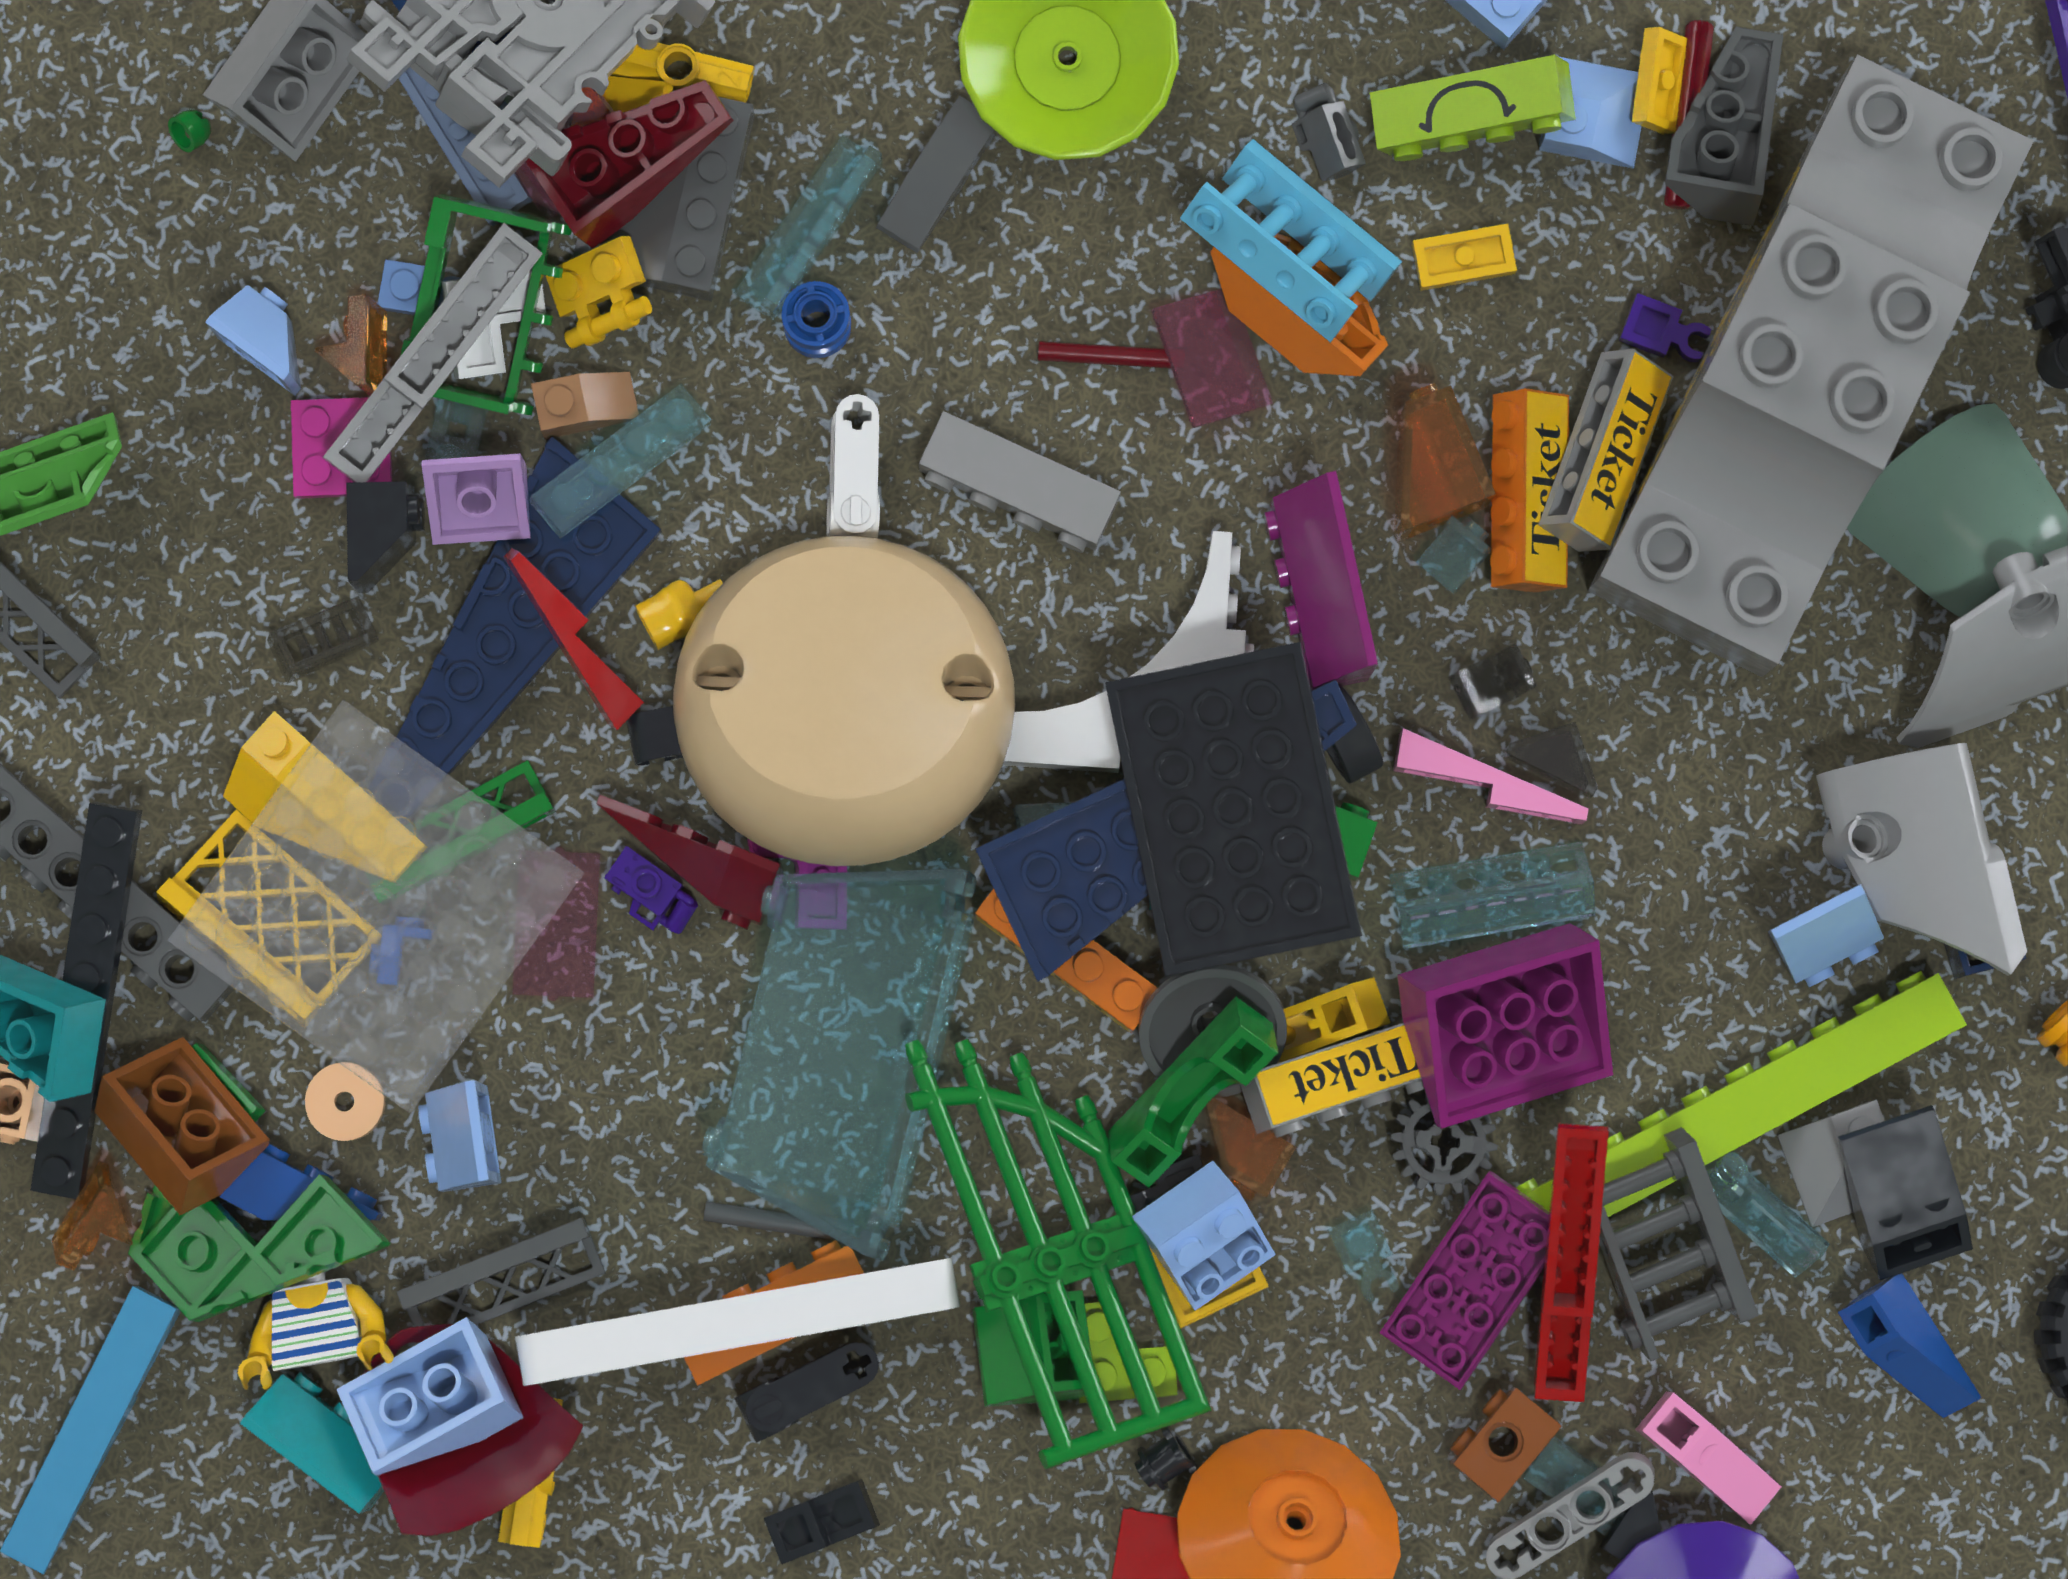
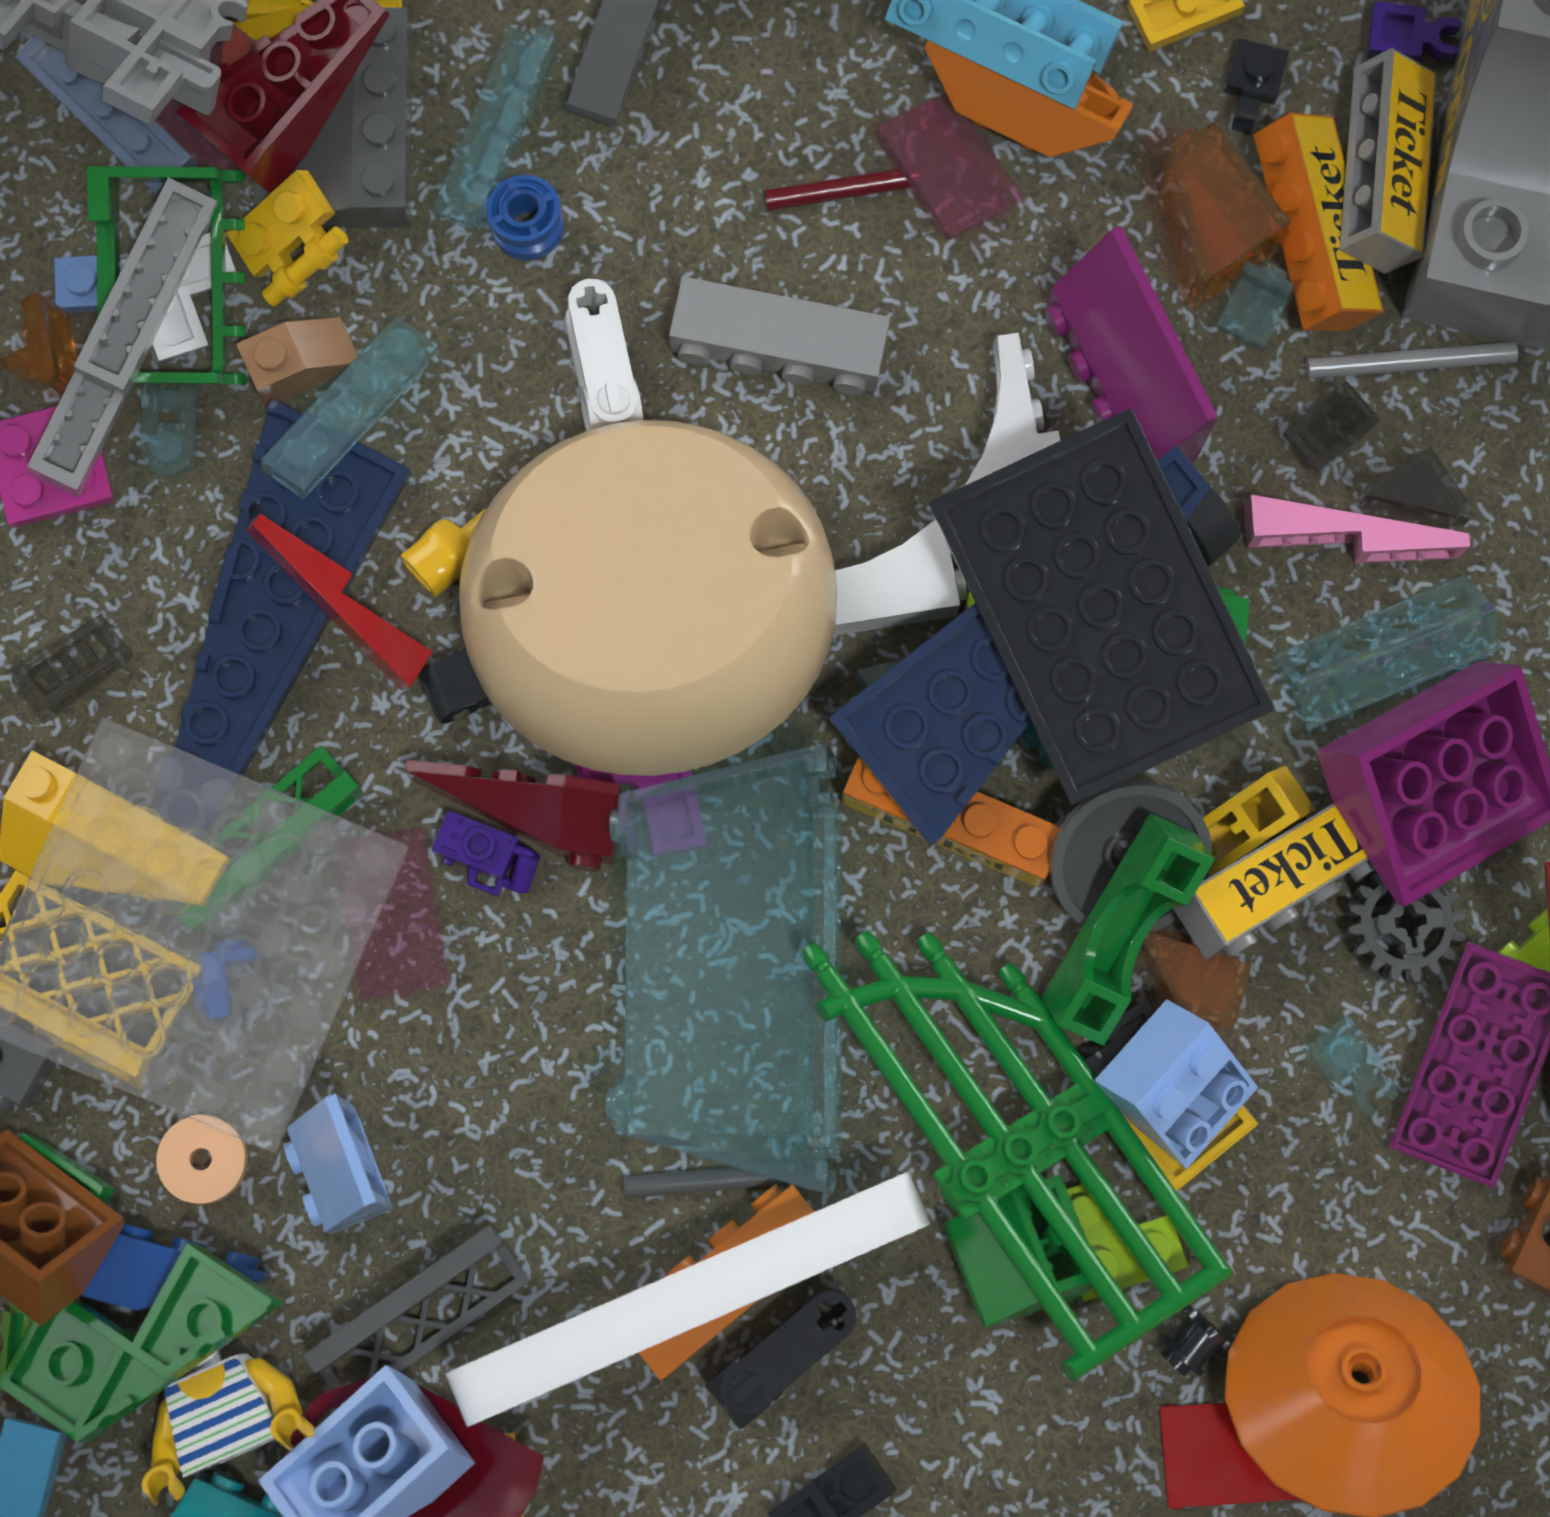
camera: 10 degrees left, 5 degrees down
(379, 529) = (106, 532): black slope -> none
(477, 498) = (203, 474): lavender slope -> none
(1511, 338) = (1255, 78): none -> black plate
(1585, 633) = (1411, 360): none -> light grey bar

